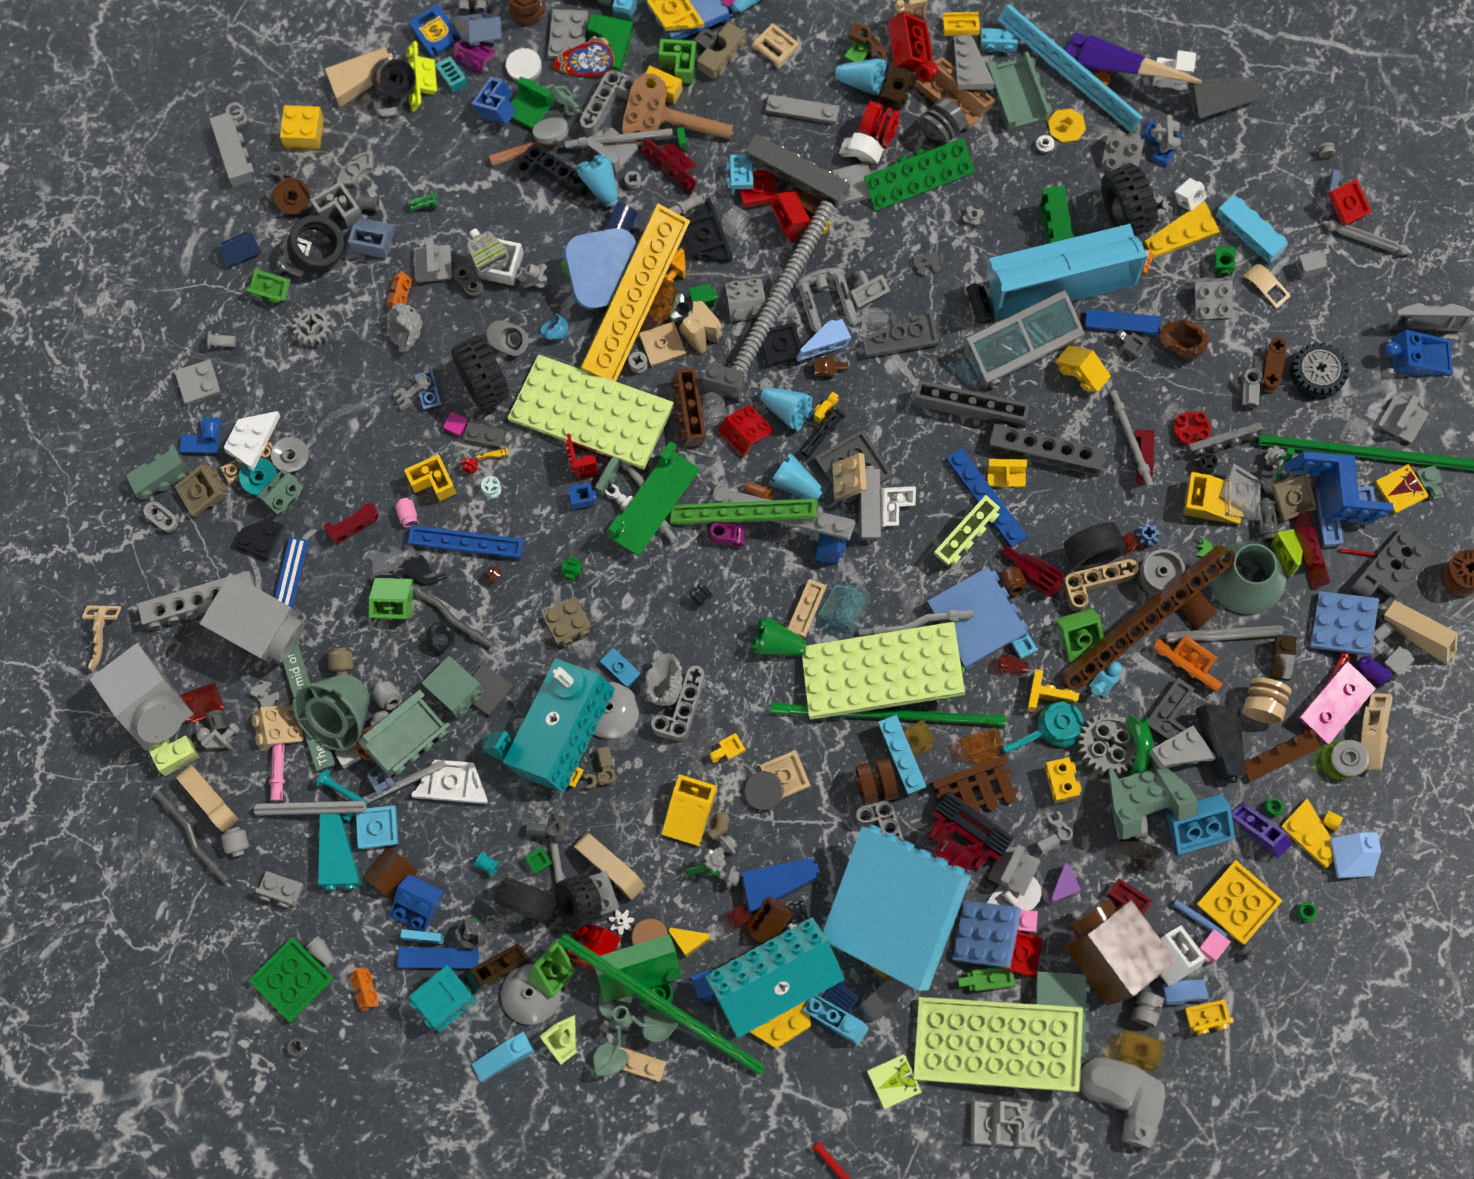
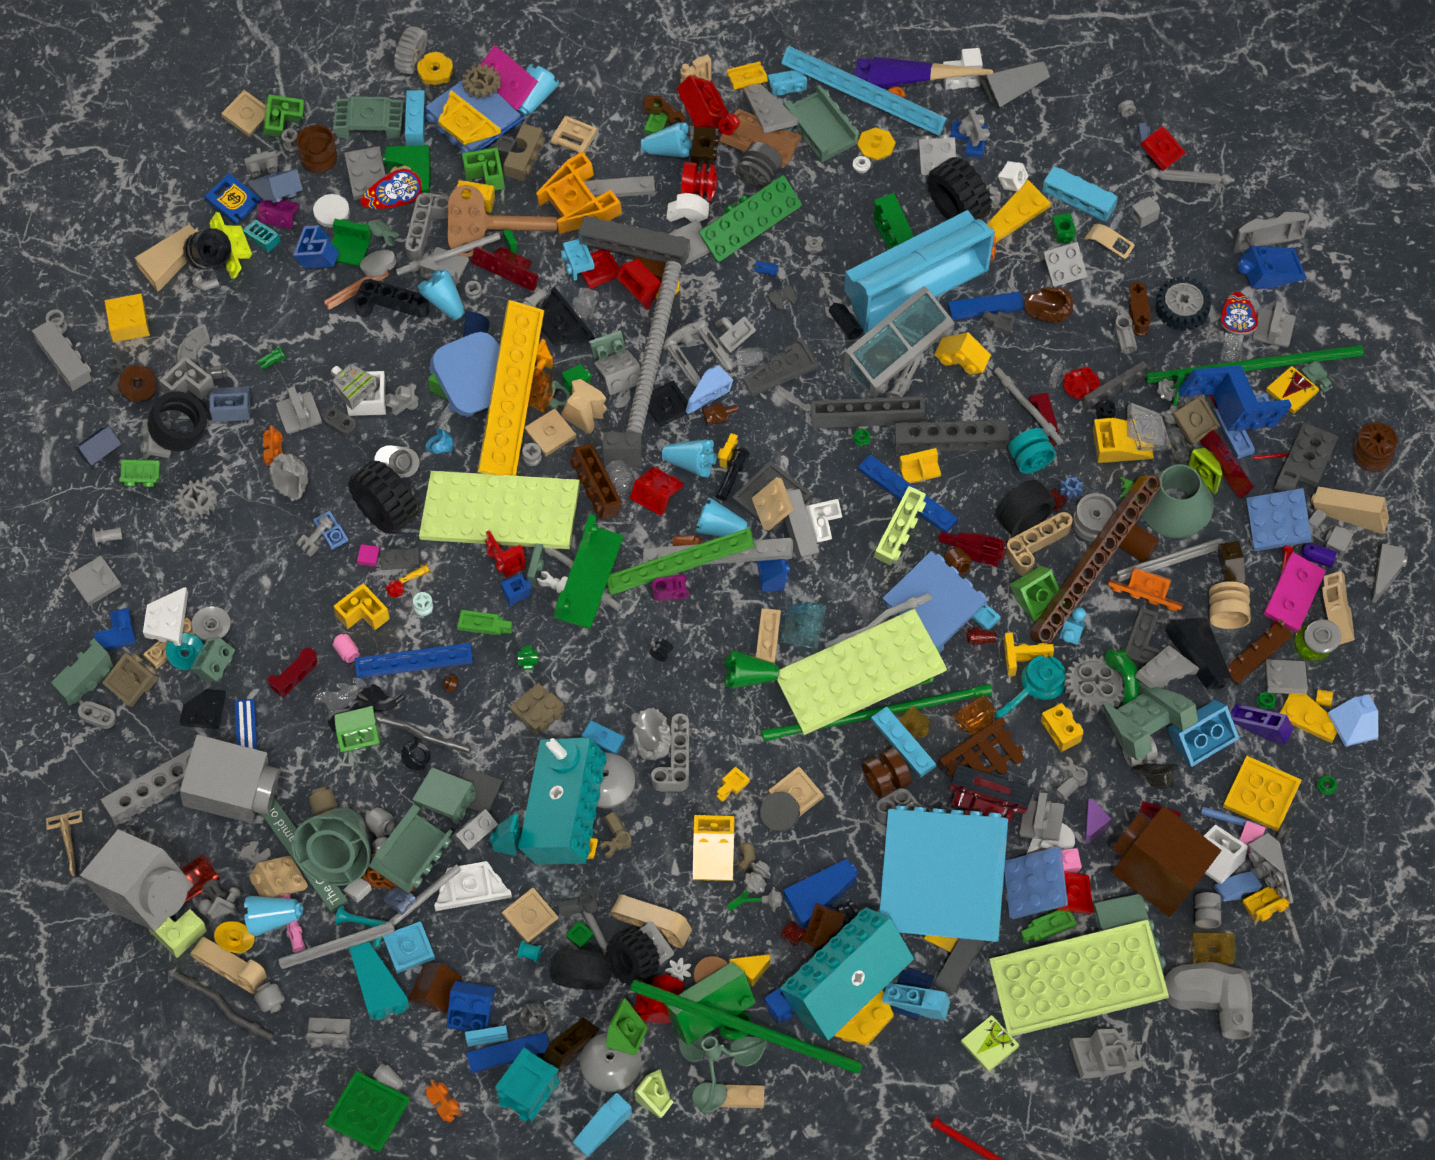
camera: 20 degrees left, 10 degrees down
(220, 765) = (233, 937): none -> yellow dish
(256, 760) = (270, 913): none -> medium azure cone
(470, 729) = (474, 830): none -> light grey brick
(498, 828) = (530, 915): none -> tan plate
(541, 522) = (483, 623): none -> bright green hinge
(742, 269) = (606, 344): none -> sand green hips
(754, 111) = (573, 198): none -> light orange wedge
(920, 229) = (767, 268): none -> blue pin
(959, 423) = (864, 434): none -> green plate
(1014, 383) = (902, 383): none -> light grey pin
(1120, 487) = (1032, 450): none -> teal wheel
(1223, 982) = (1270, 865): none -> light grey slope
(1300, 788) = (1286, 676): none -> light grey plate
(1371, 397) = (1239, 315): none -> shield
(1440, 701) = (1389, 565): none -> light grey slope

